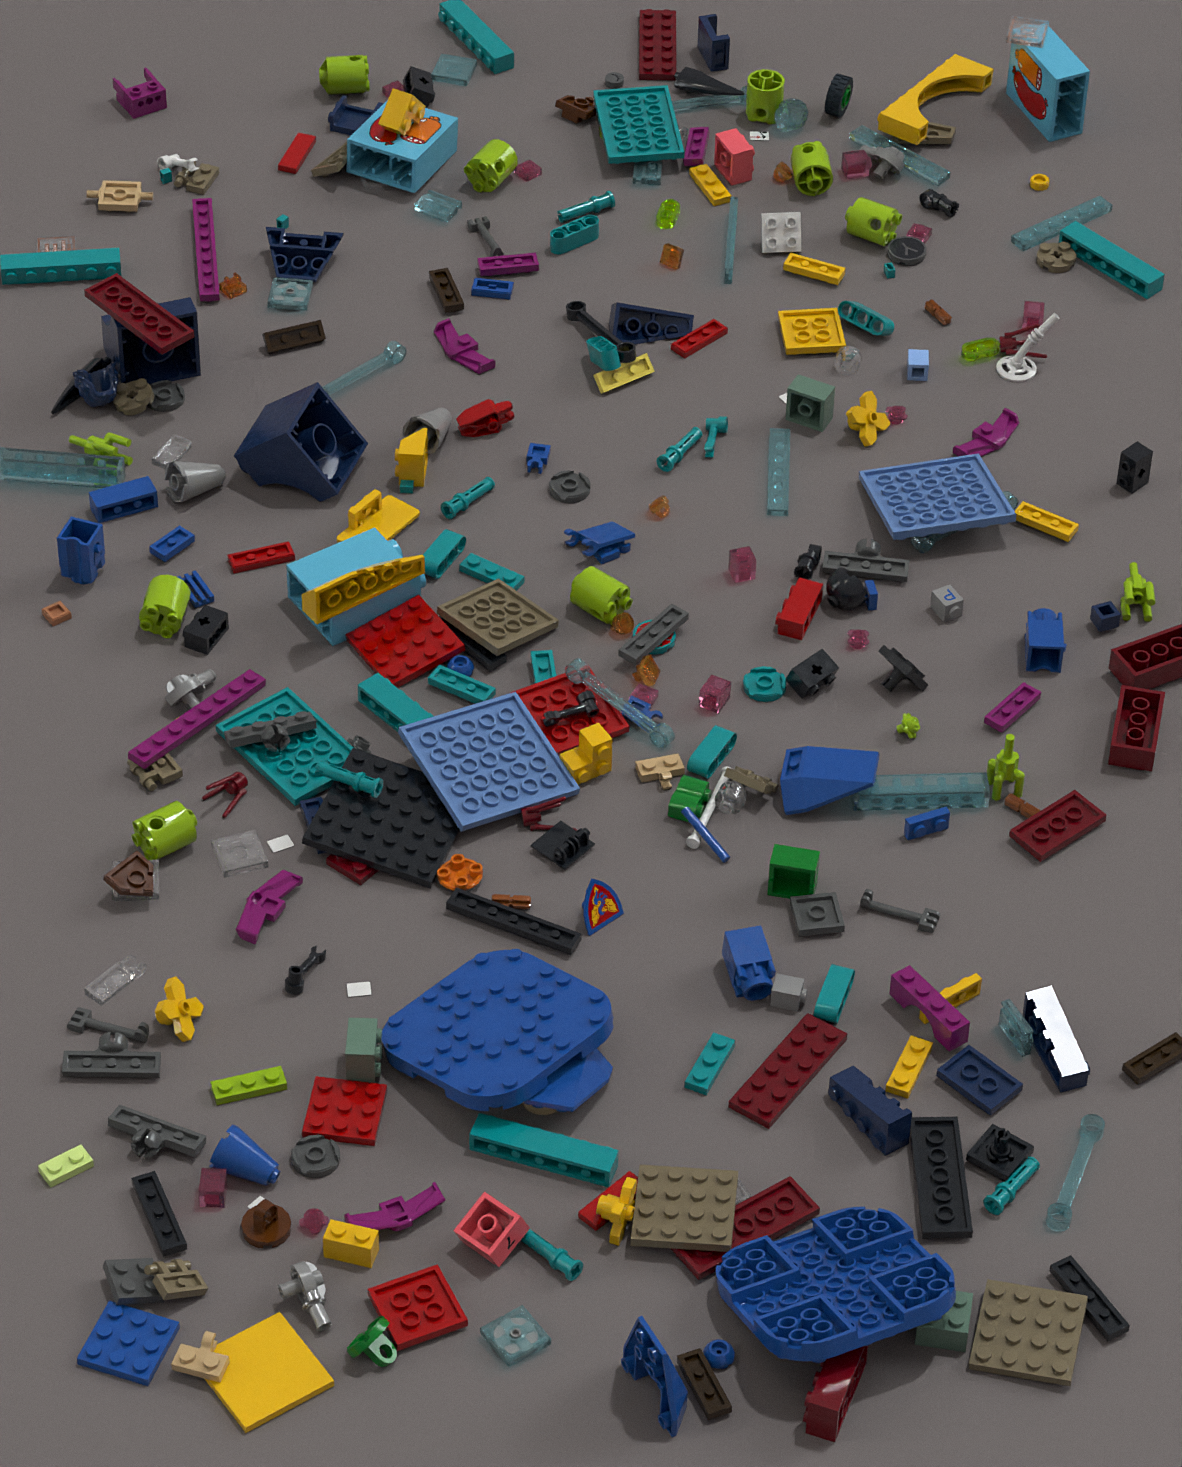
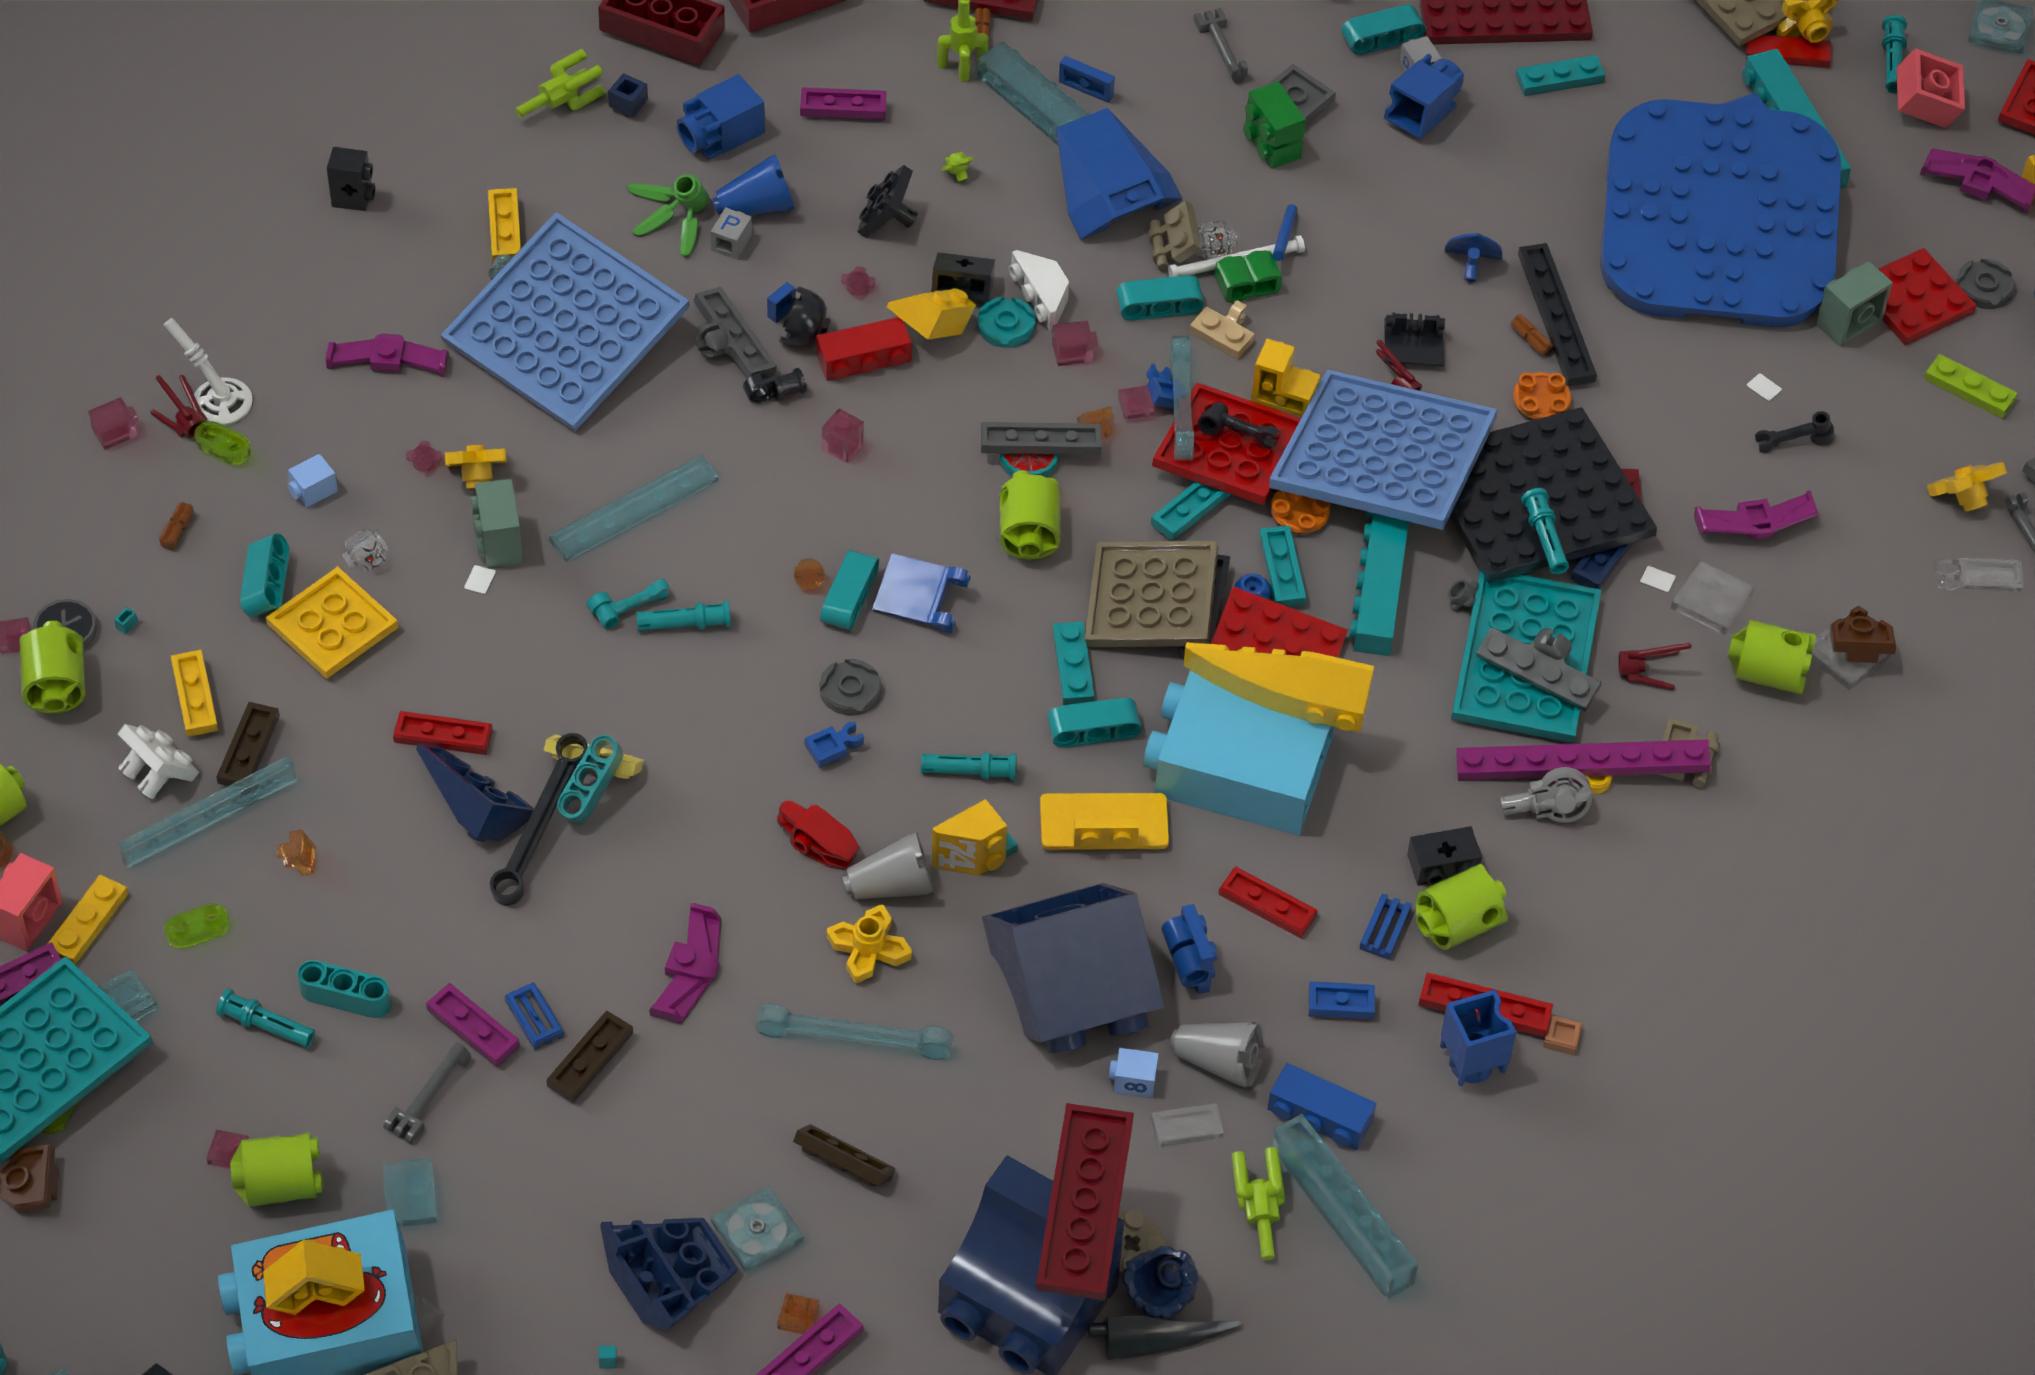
camera: 130 degrees left, 10 degrees up
(105, 592) = (1525, 1013): none -> red plate
(219, 449) = (1134, 1072): none -> light blue brick
(258, 498) = (1190, 949): none -> blue plate
(401, 403) = (869, 942): none -> yellow plant
(631, 513) = (849, 590): none -> teal beam
(760, 271) = (248, 743): none -> dark brown plate
(772, 707) = (1041, 284): none -> white slope
(794, 639) = (935, 313): none -> yellow slope
(964, 628) = (756, 191): none -> blue cone
(992, 595) = (688, 192): none -> bright green plant

